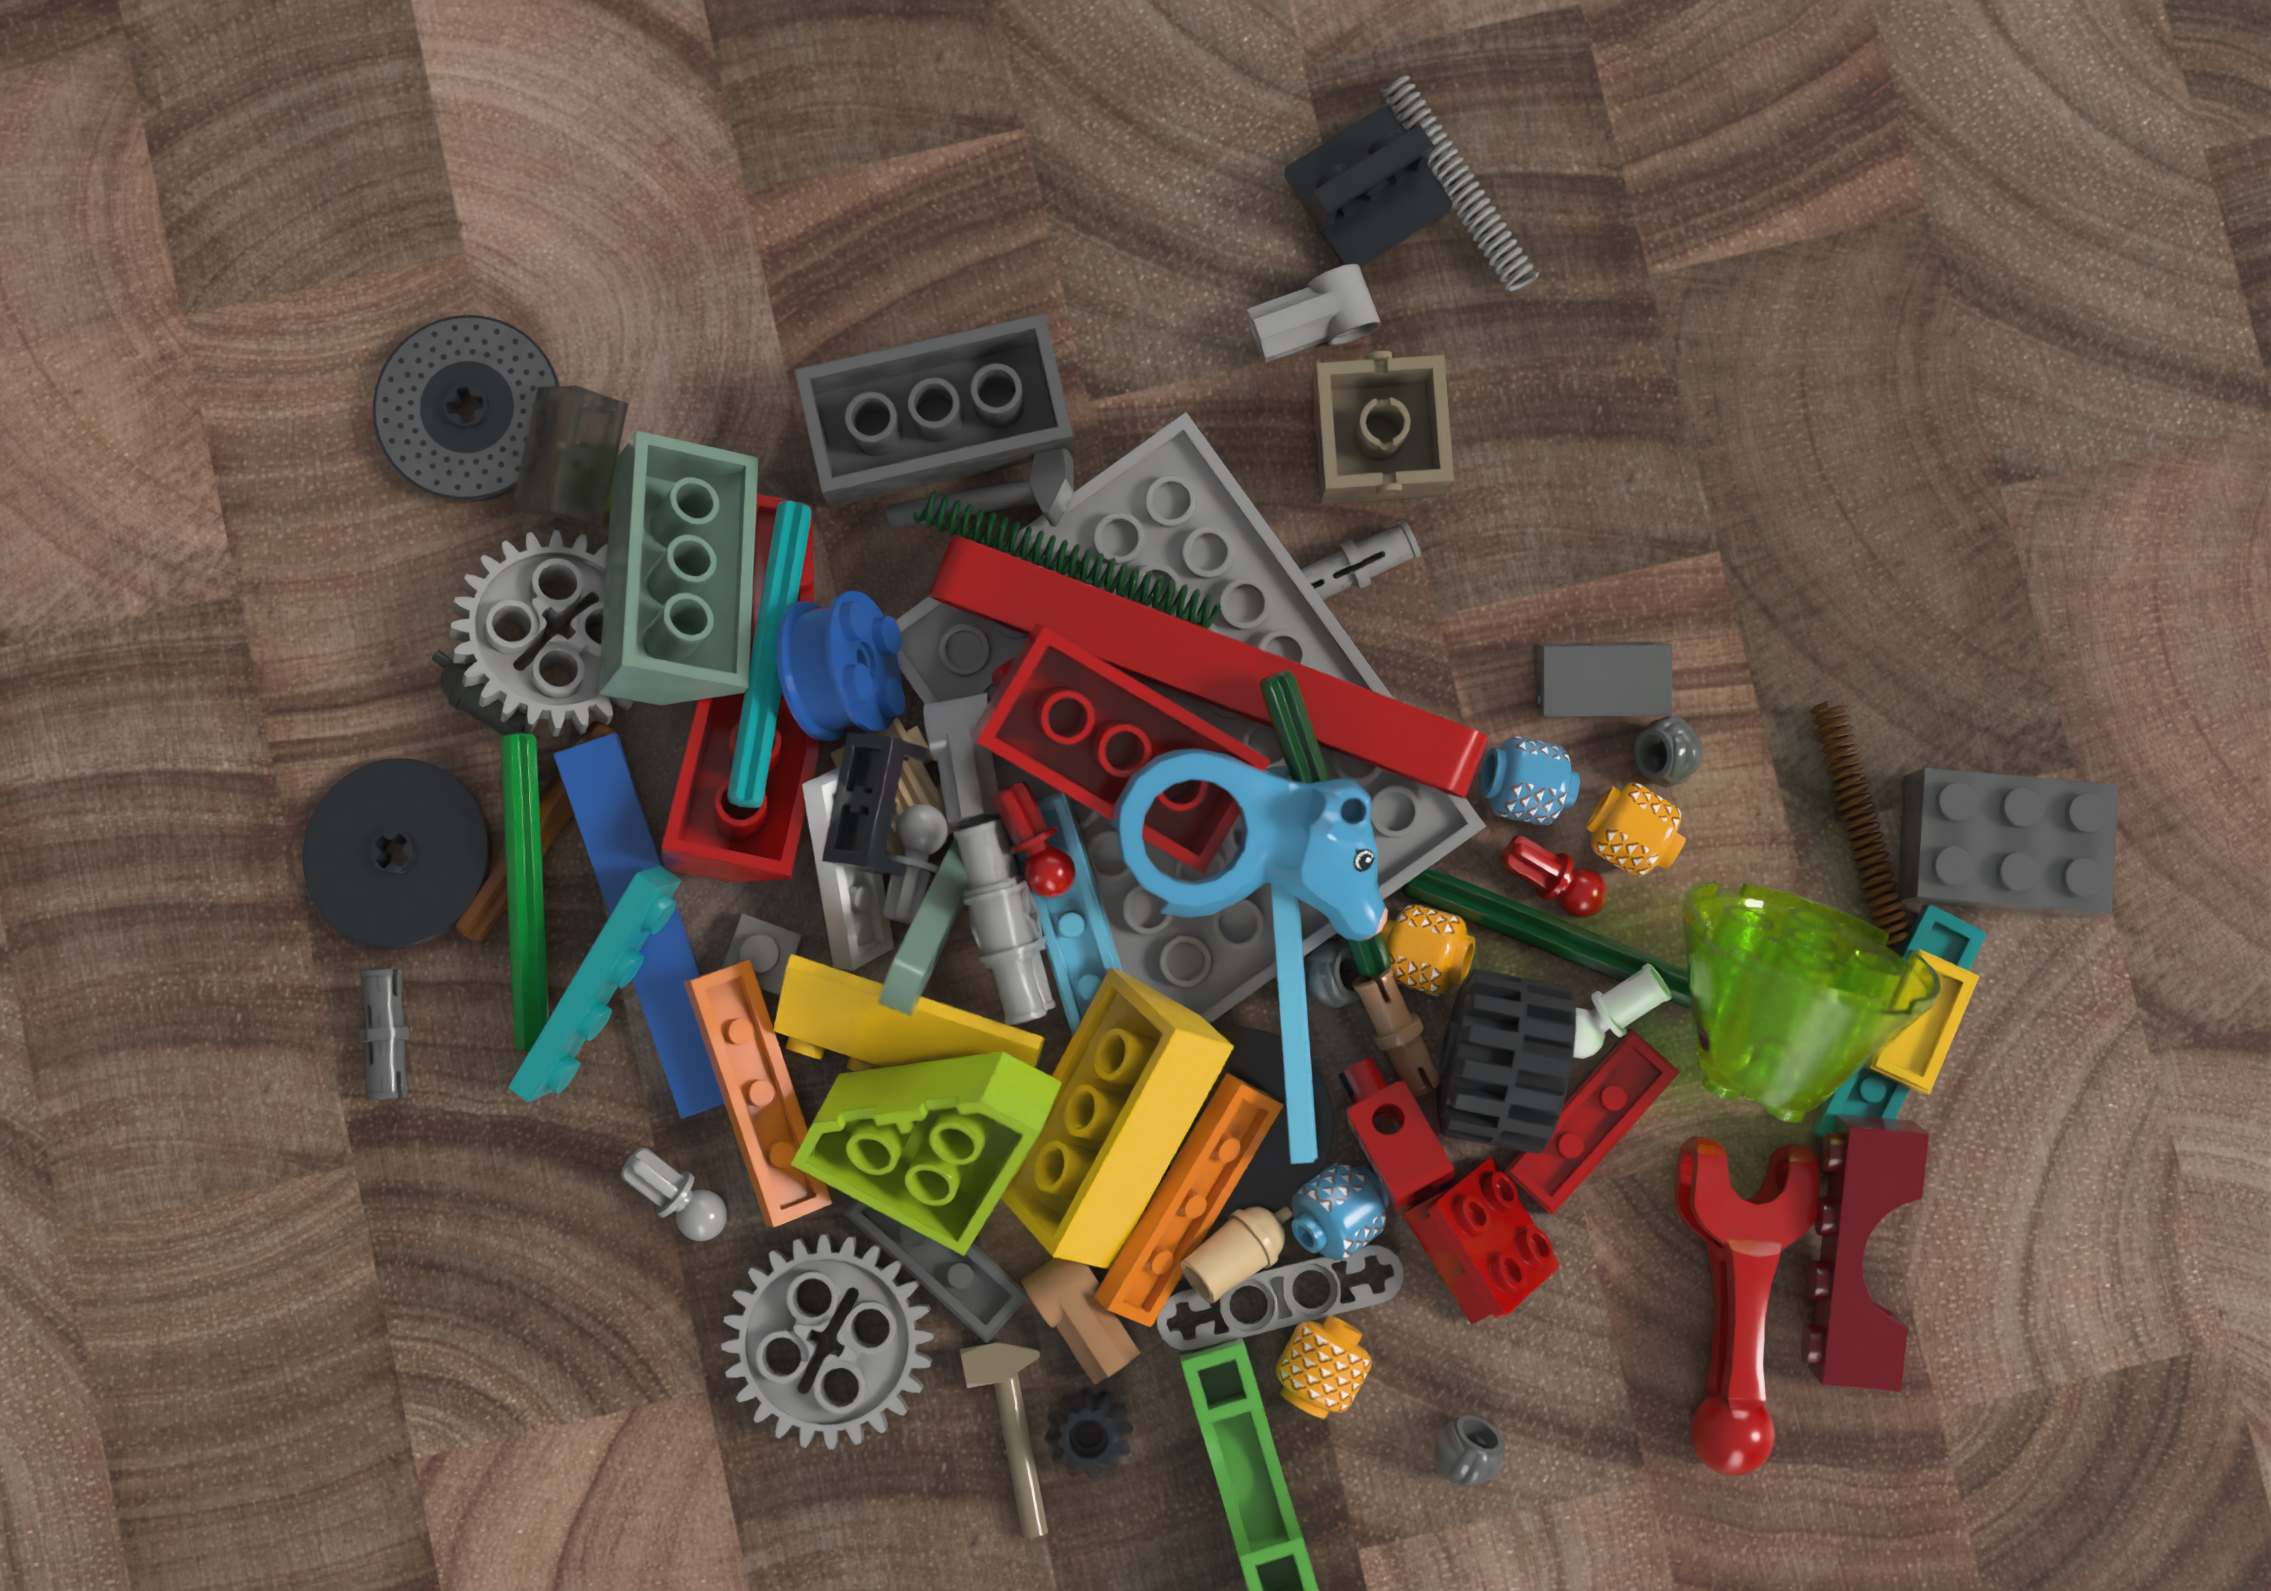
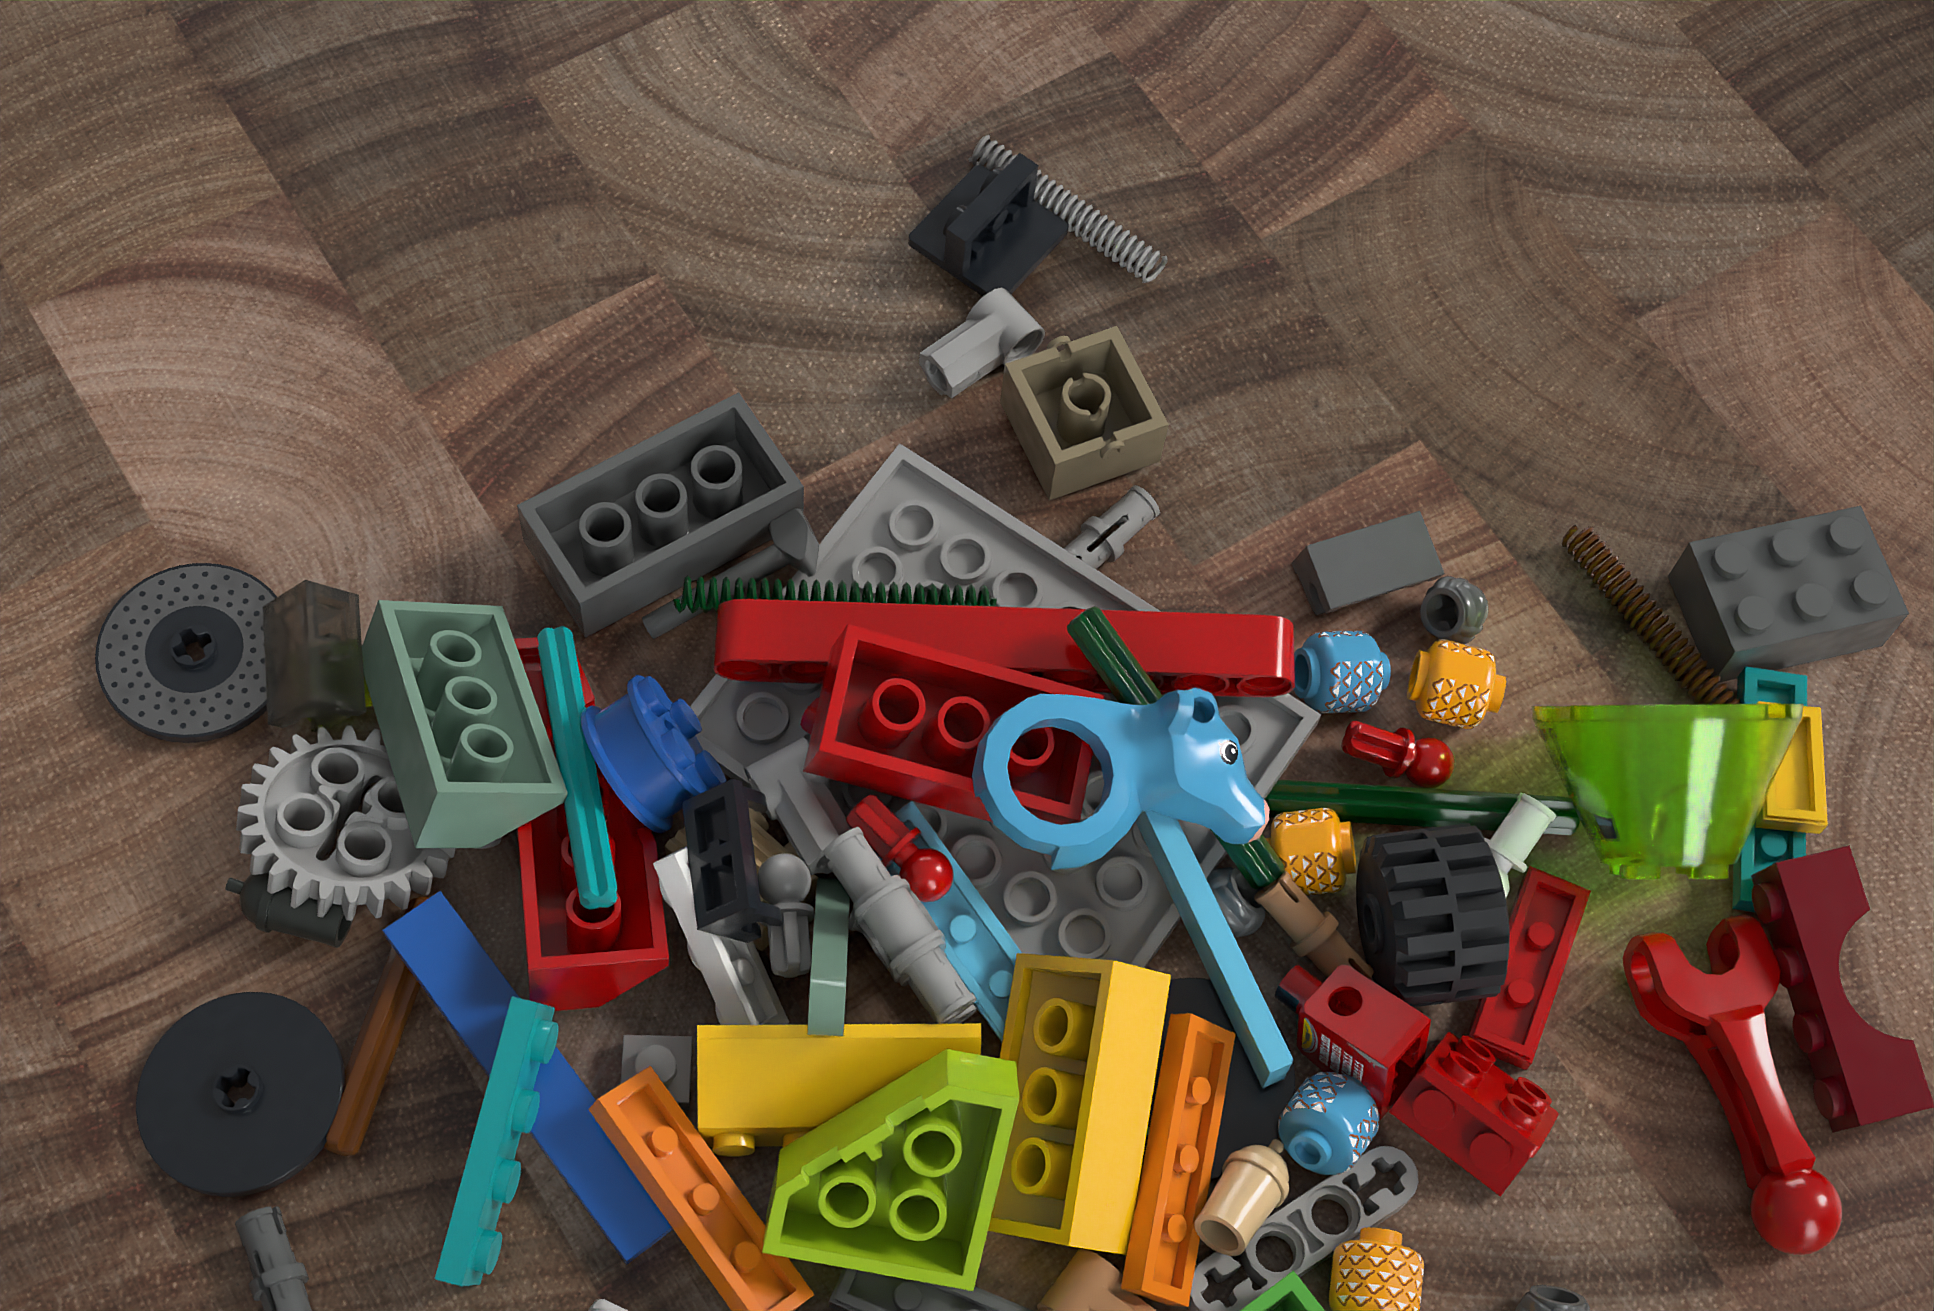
camera: 25 degrees left, 20 degrees down
(524, 887) = (391, 1078): green axle -> none

